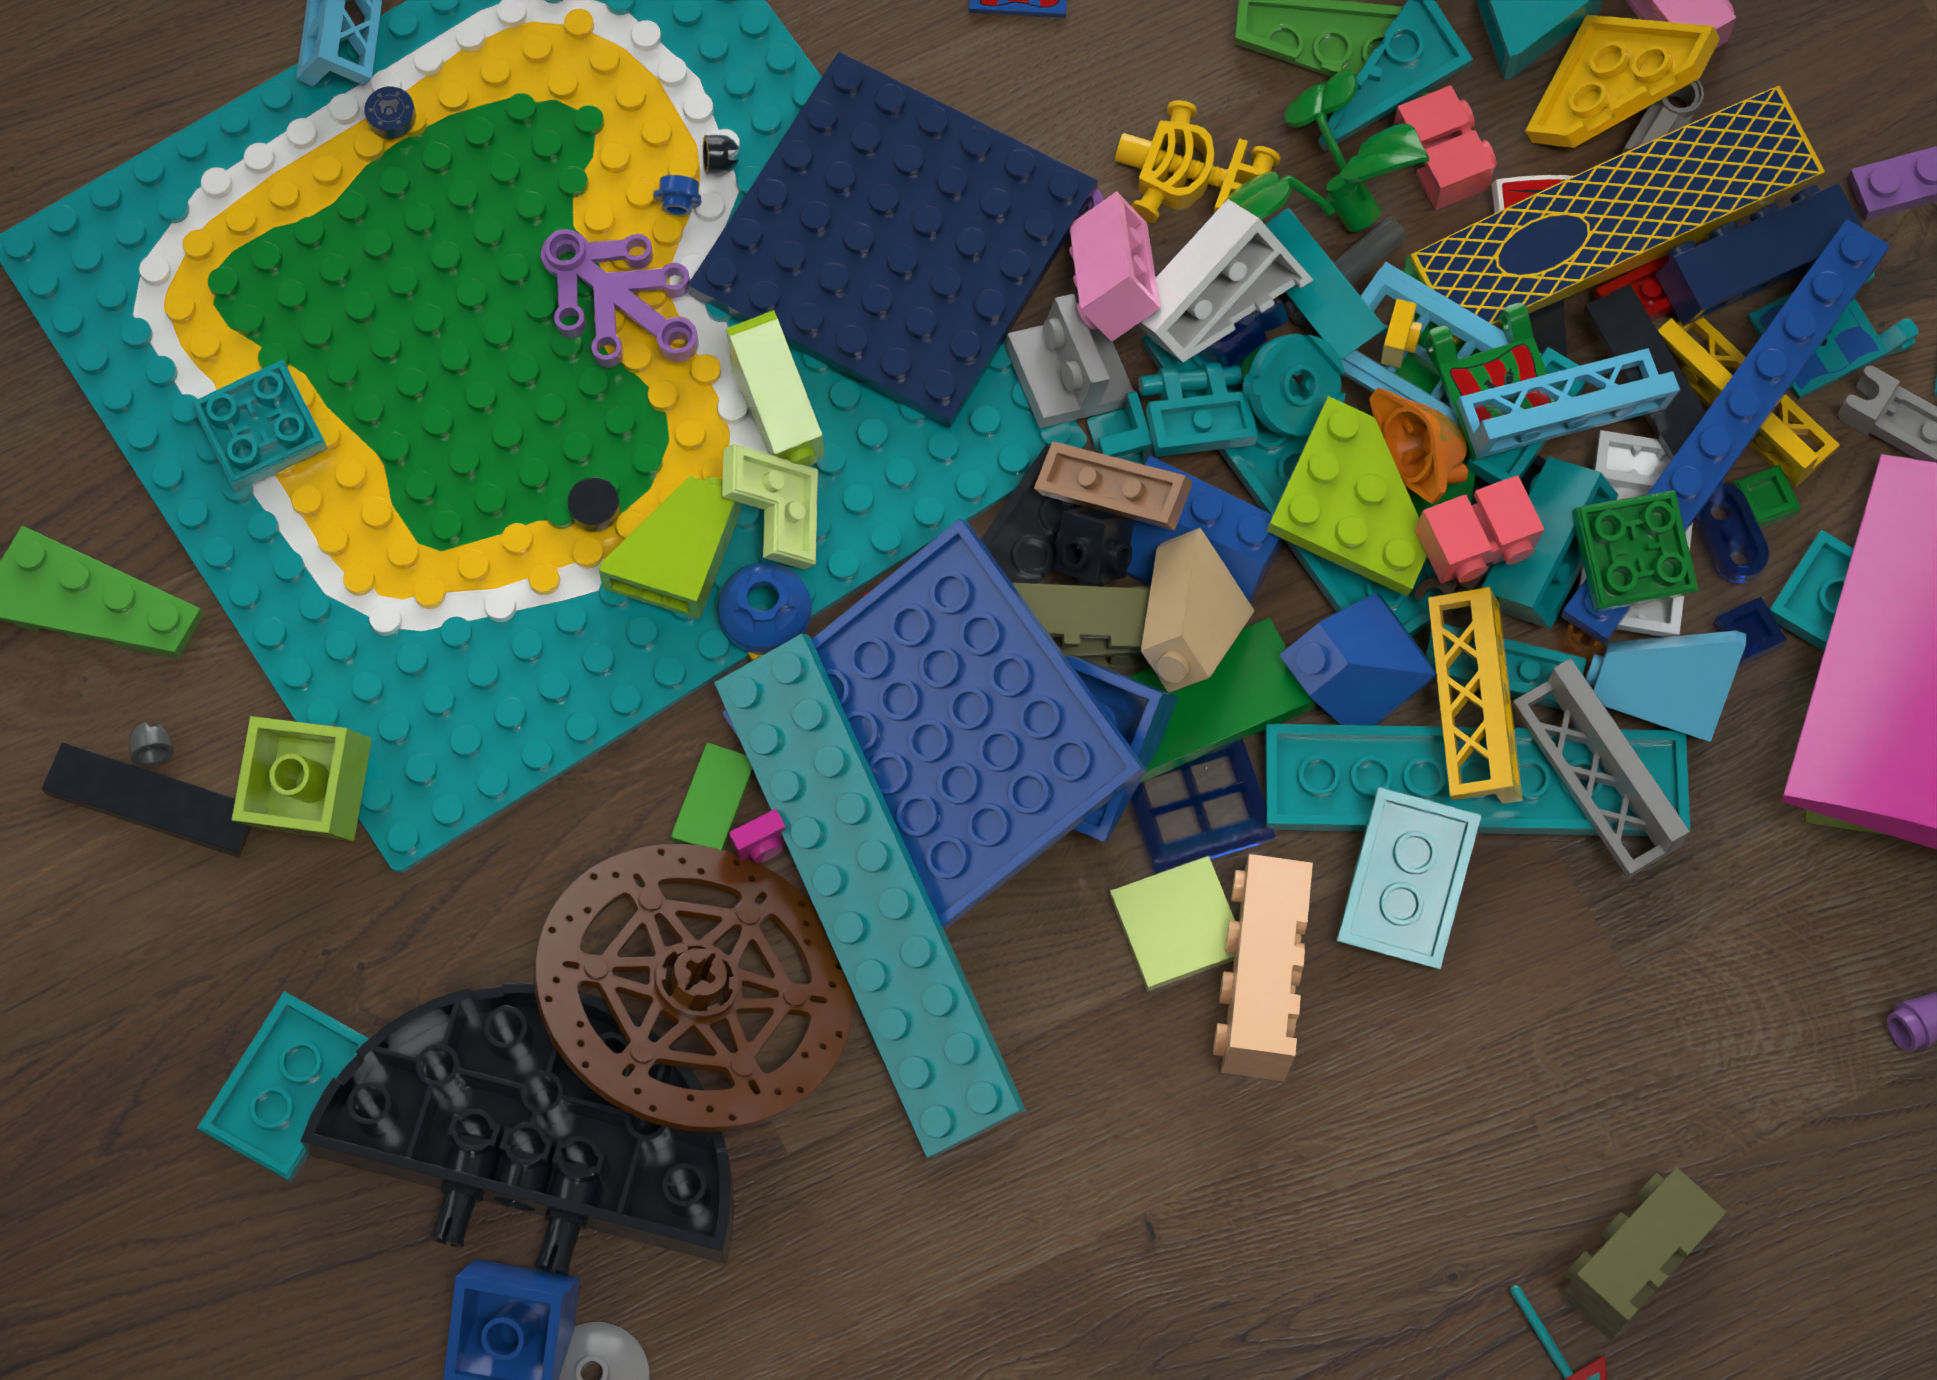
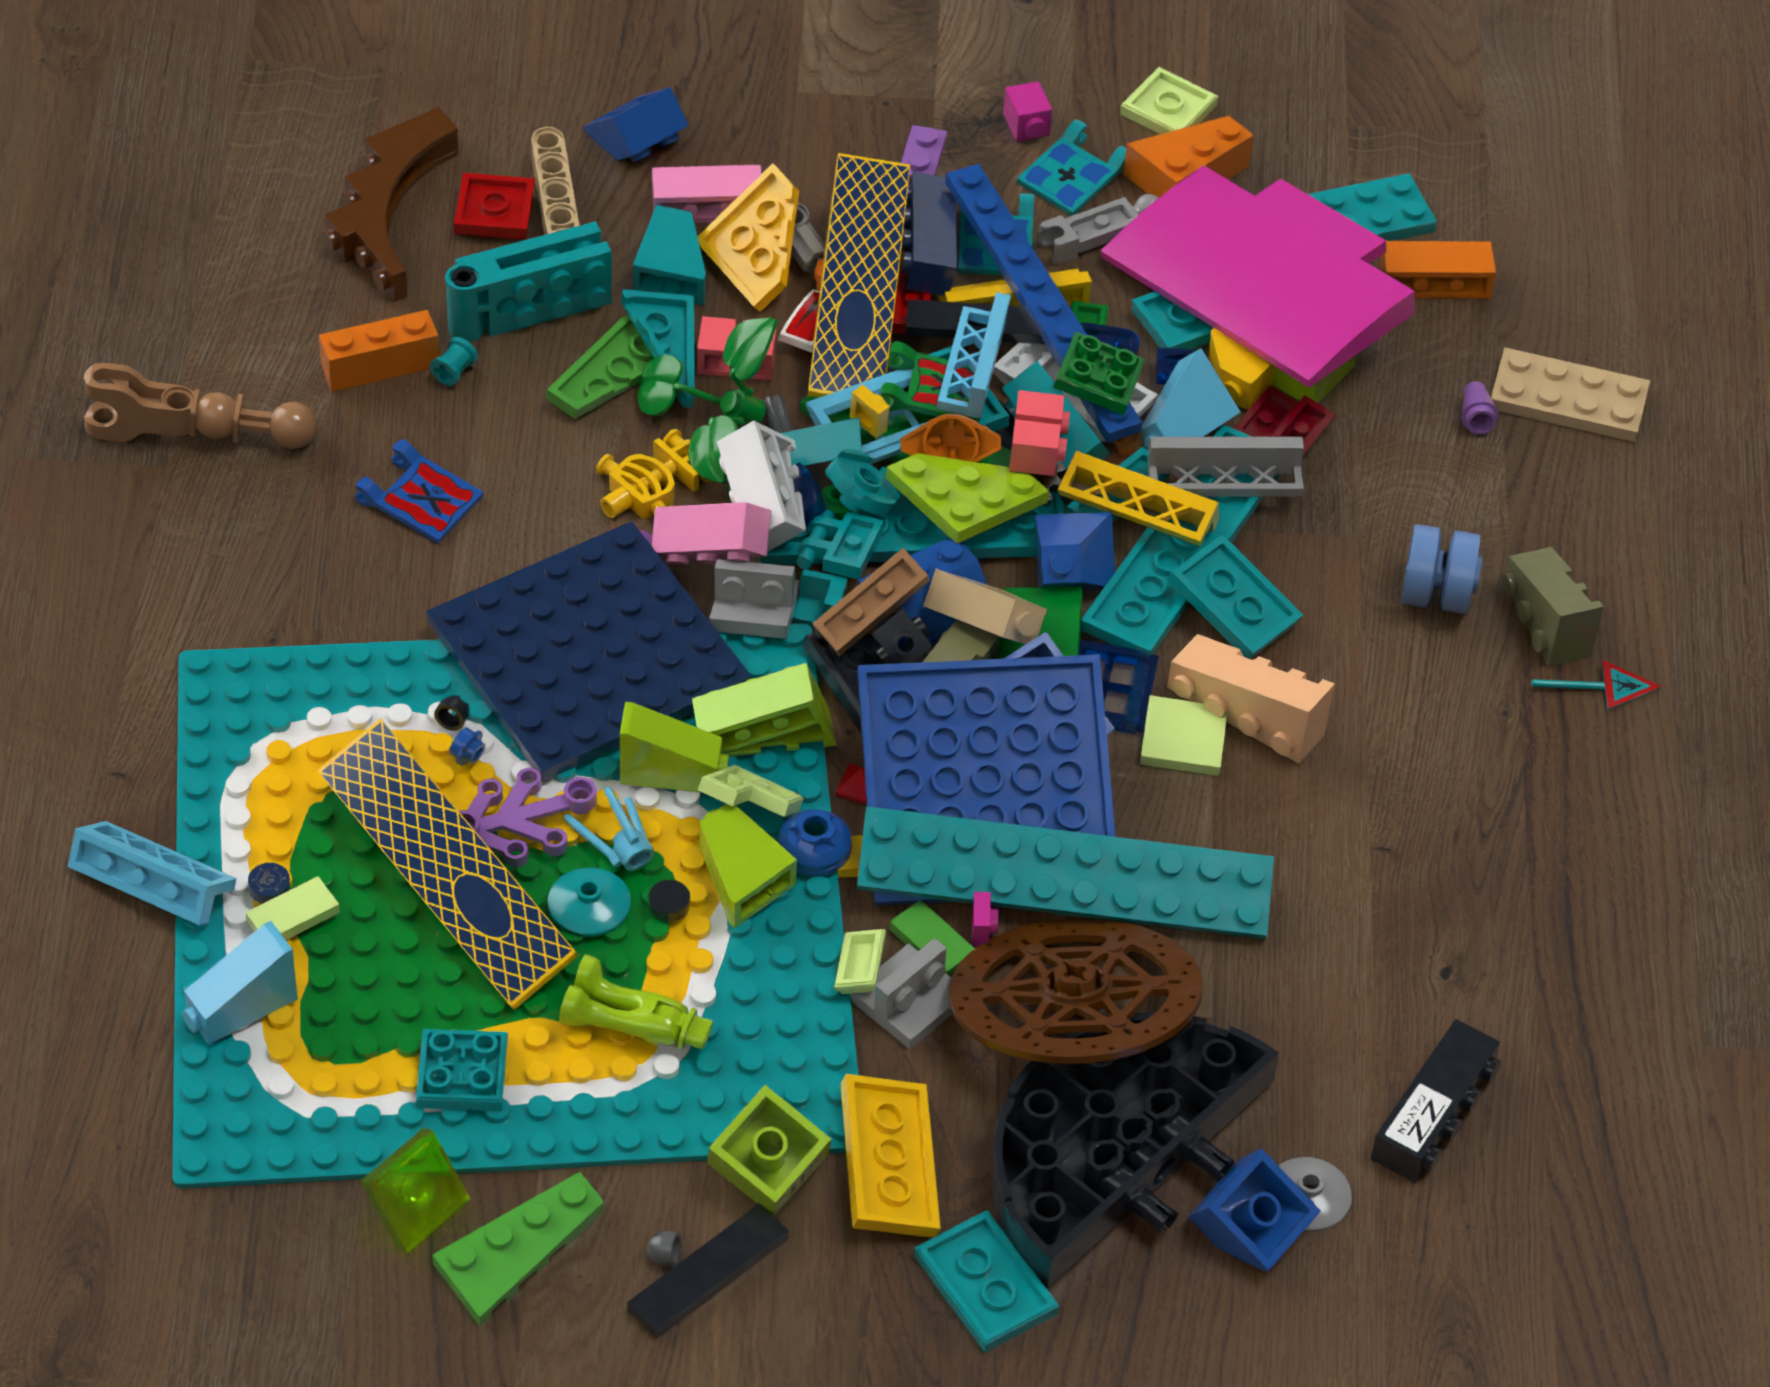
camera: 65 degrees left, 20 degrees down
(71, 464) = (415, 1190): none -> clear neon green tile
(225, 163) = (242, 986): none -> medium azure slope
(365, 155) = (296, 909): none -> yellowish green tile
(380, 904) = (890, 1156): none -> yellow plate
(423, 575) = (647, 1014): none -> lime piece
(493, 259) = (448, 863): none -> dark blue slope
(554, 447) = (589, 914): none -> teal dish
(618, 808) = (910, 993): none -> light grey bracket
(629, 739) = (860, 961): none -> yellowish green tile
(635, 424) = (630, 843): none -> medium azure plant
(892, 460) = (767, 712): none -> lime wedge
(1605, 1110) = (1452, 571): none -> medium blue wheel
(1739, 802) = (1281, 416): none -> dark red slope
(1781, 705) = (1239, 369): none -> yellow slope

